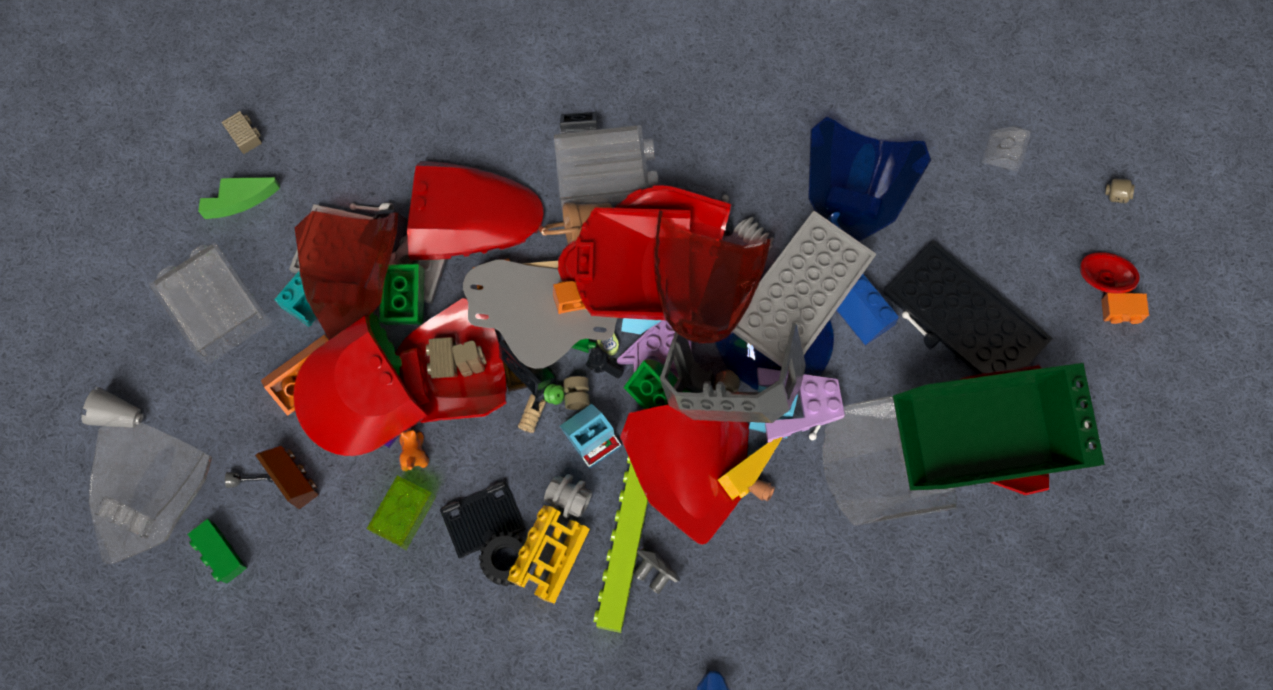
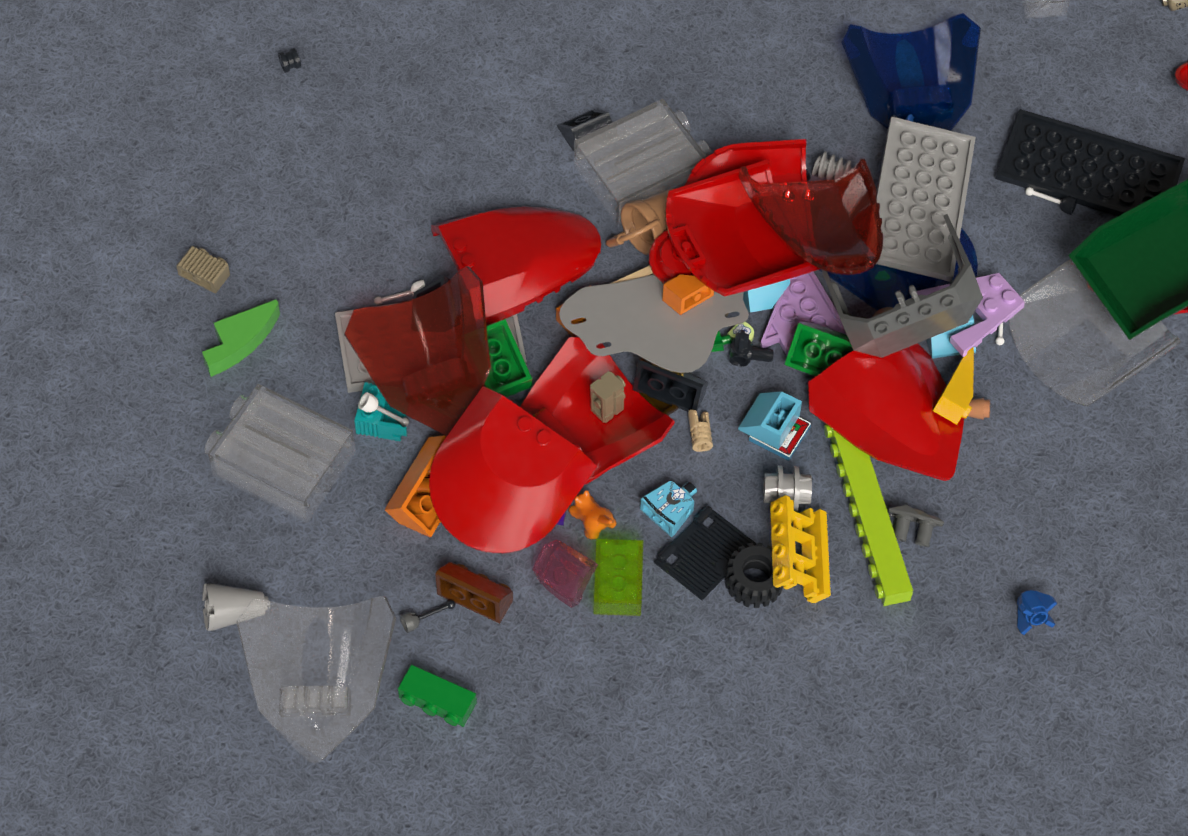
camera: 30 degrees left, 10 degrees down
(287, 291) = (370, 403): none -> white hinge
(360, 492) = (564, 571): none -> clear pink slope
(441, 358) = (575, 408): dark tan brick -> none
(474, 469) = (669, 505): none -> medium azure torso
(554, 394) = (713, 401): bright green wheel -> none
(576, 393) = (737, 390): dark tan wheel -> none
(867, 311) = (992, 201): blue slope -> none

